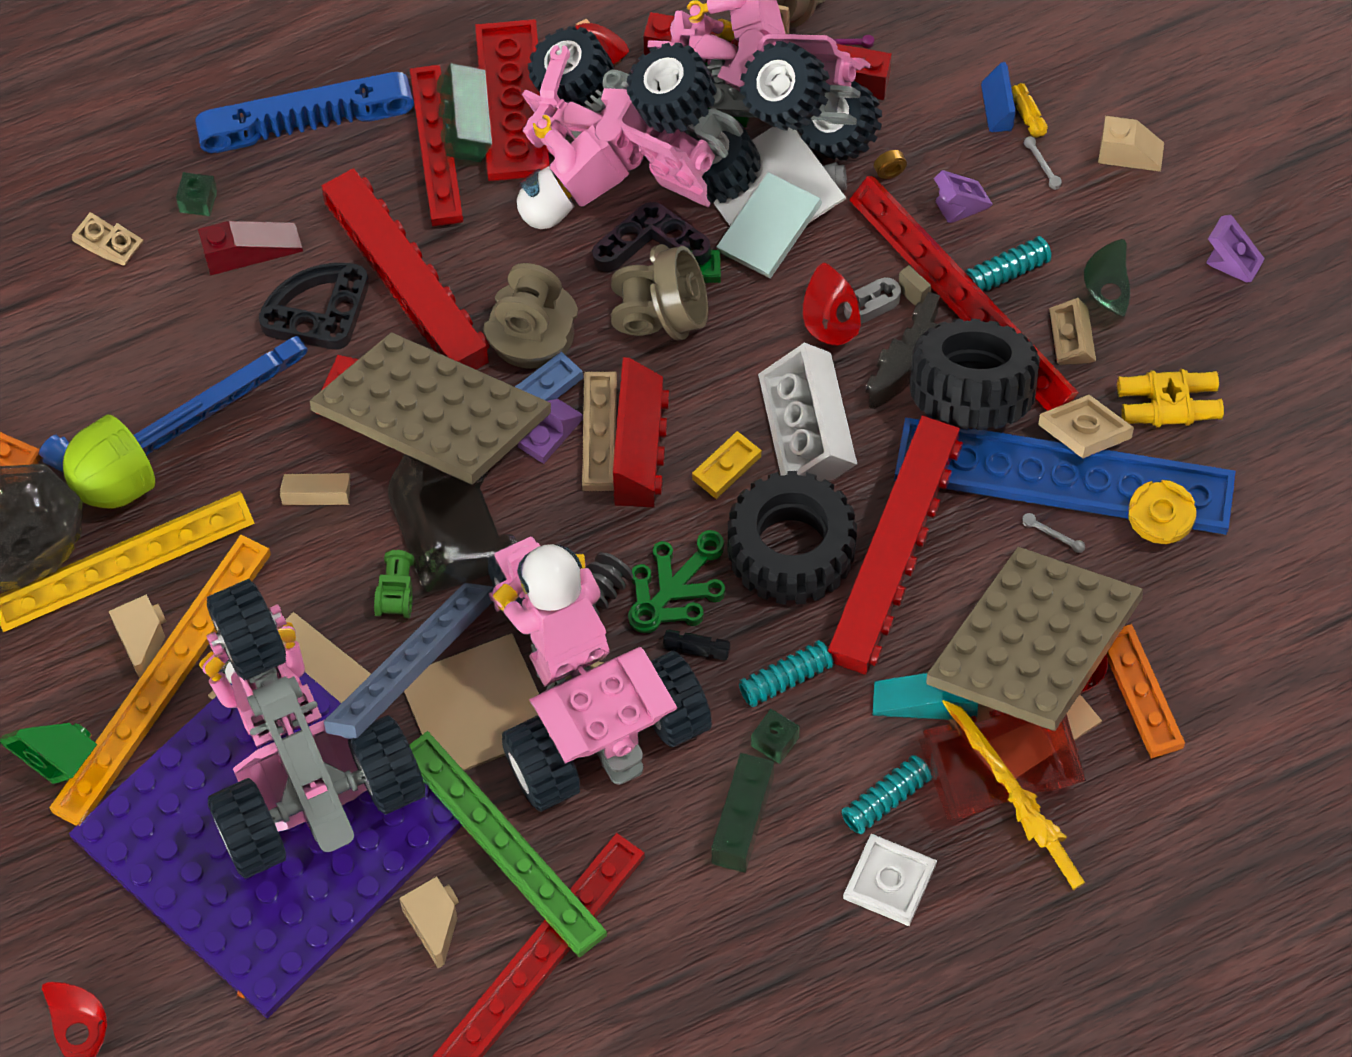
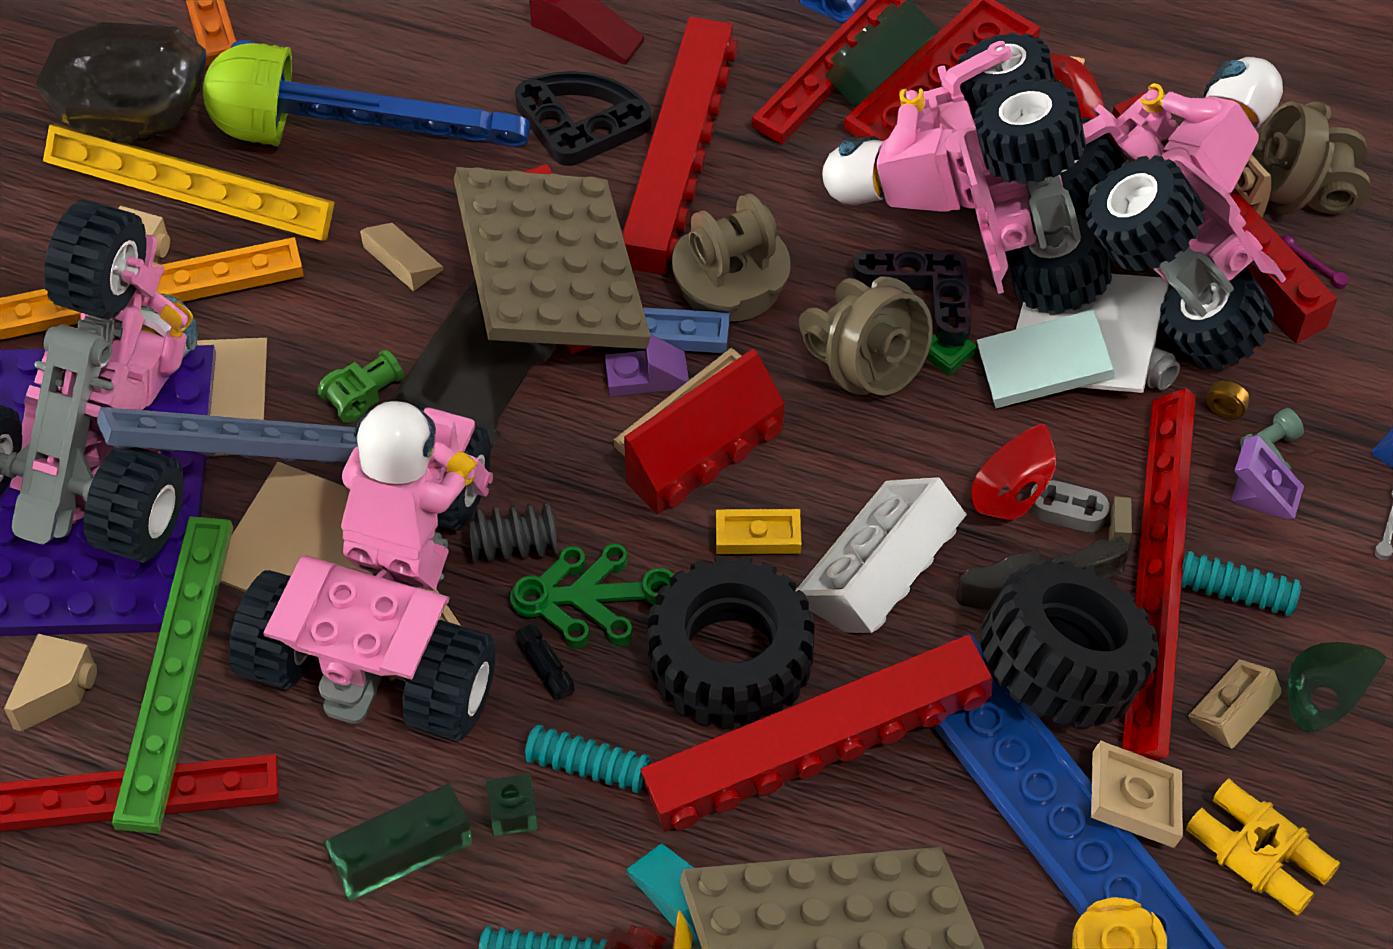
camera: 45 degrees right, 5 degrees down
(934, 153) = (1285, 426): none -> sand green piece
(1029, 521) = (985, 836): light grey hinge -> none

